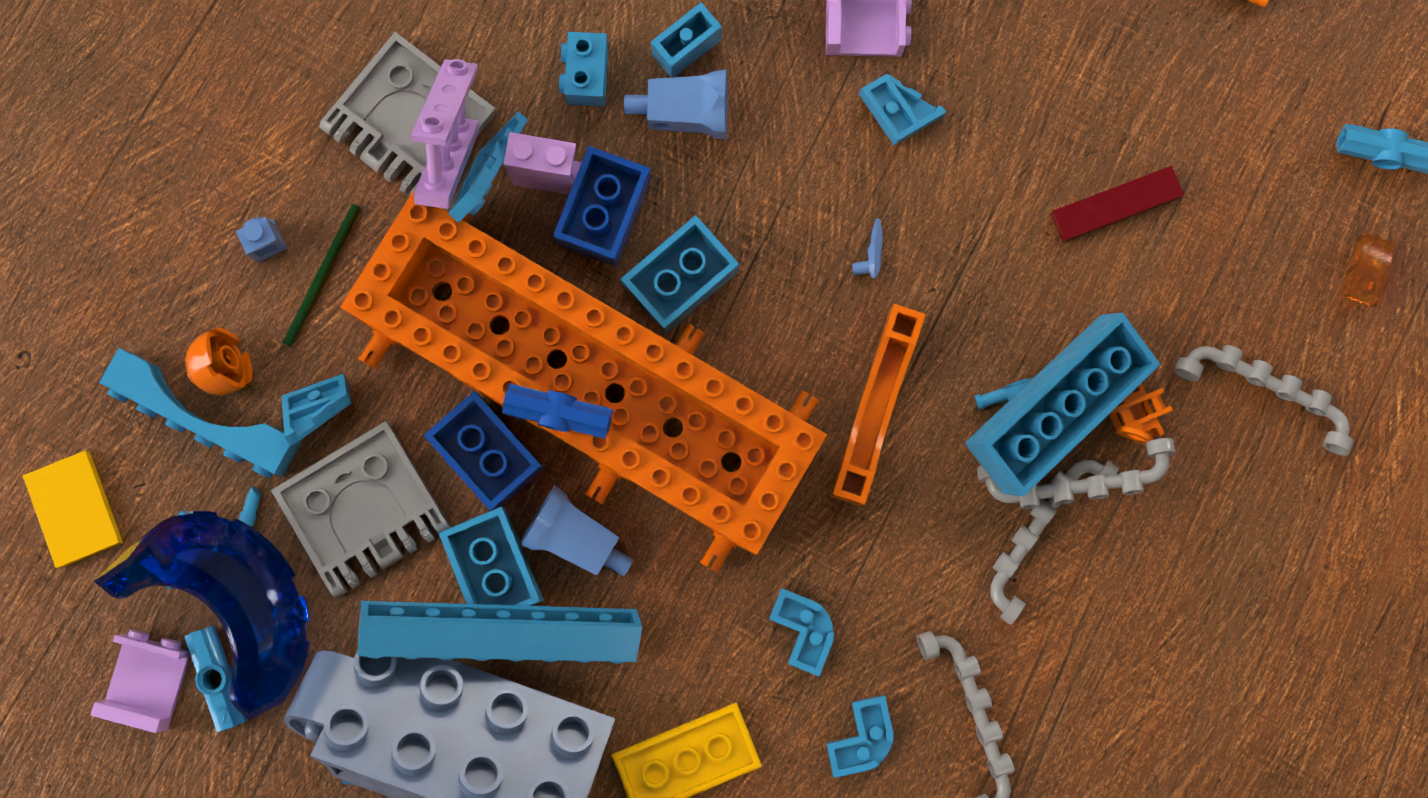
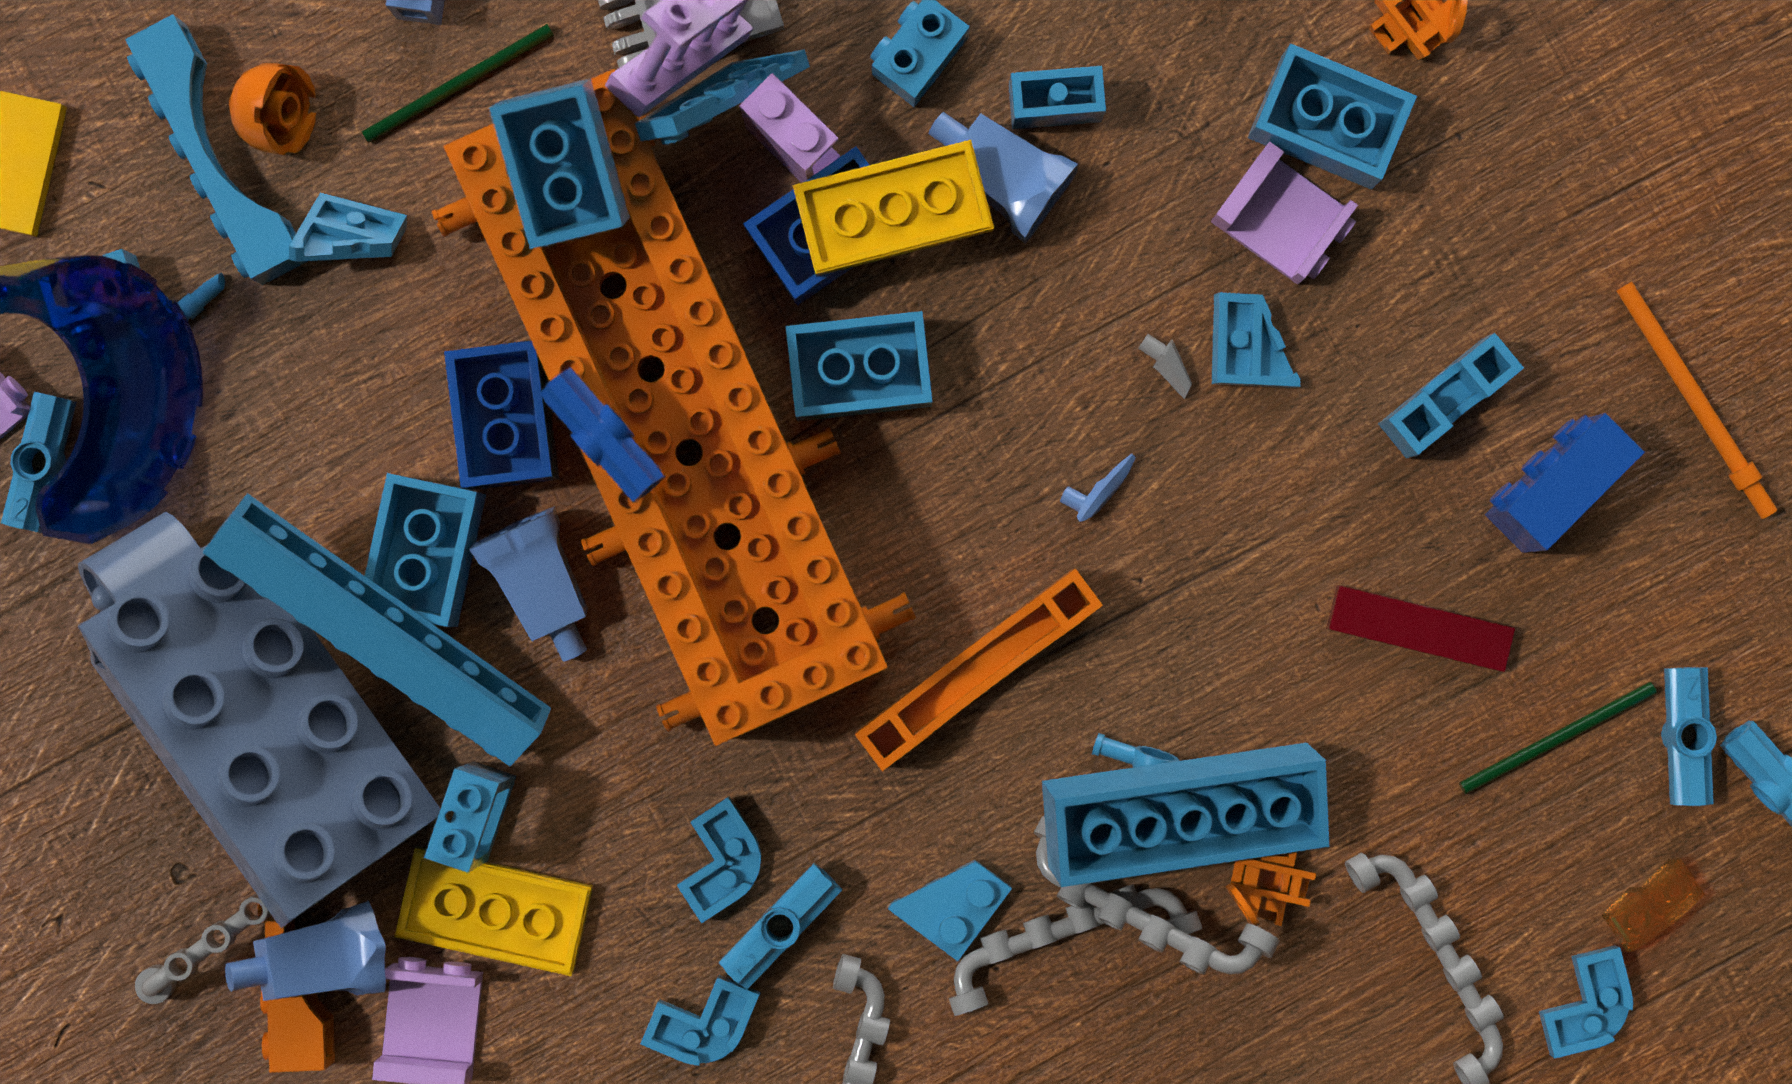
camera: 35 degrees right, 5 degrees up
(356, 505) = (323, 374): light grey hinge -> none
(419, 265) = (560, 163): none -> dark azure brick
(633, 701) = (478, 801): none -> dark azure window
(636, 165) = (893, 207): none -> yellow tile
(859, 151) = (1168, 363): none -> light grey bar
(865, 667) = (760, 947): none -> dark azure piece
(962, 560) = (953, 907): none -> dark azure wing
(1036, 56) = (1450, 395): none -> dark azure arch
(1139, 60) = (1562, 482): none -> blue brick
(1241, 213) = (1557, 737): none -> dark green axle
(1330, 174) = (1692, 766): none -> dark azure piece
(1384, 351) = (1601, 1011): none -> dark azure plate

